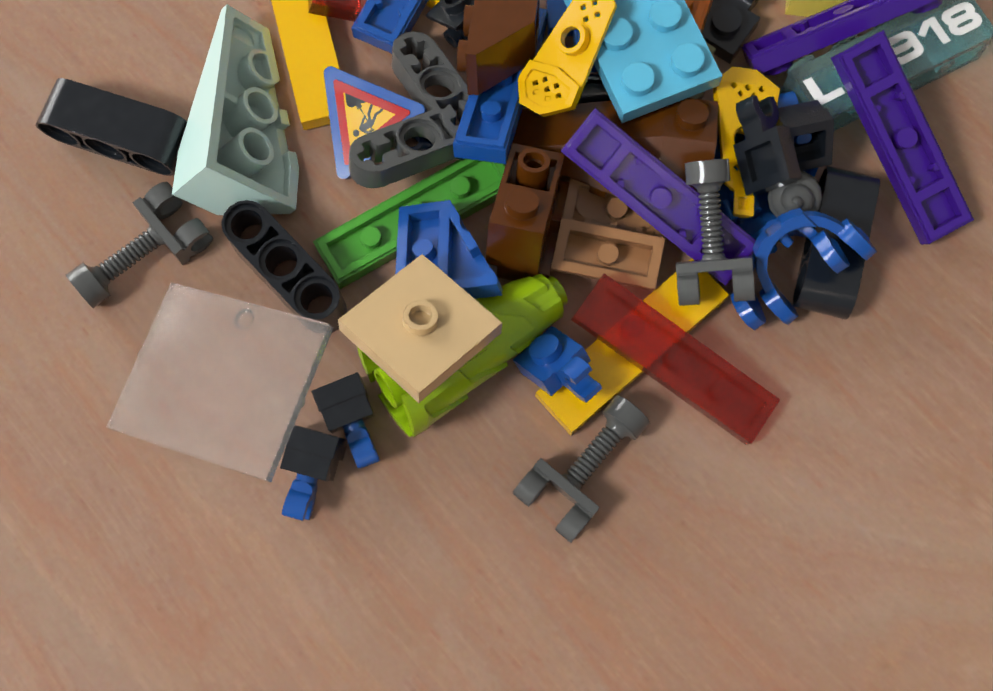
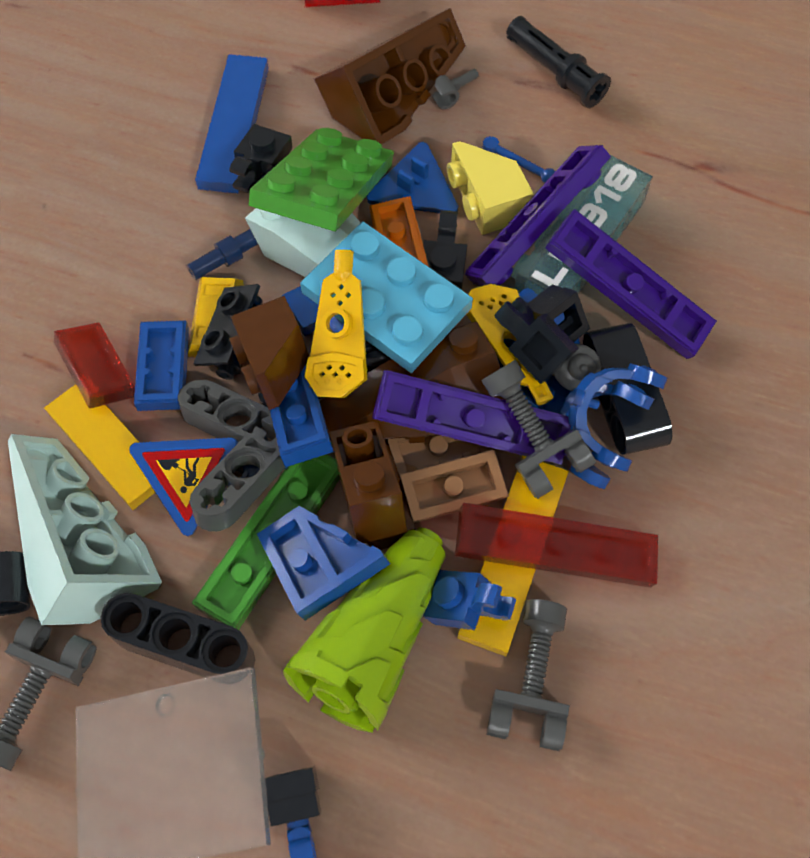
camera: 30 degrees left, 10 degrees down
(345, 408) = (300, 737): black piece -> none
(420, 327) = (338, 628): tan plate -> none

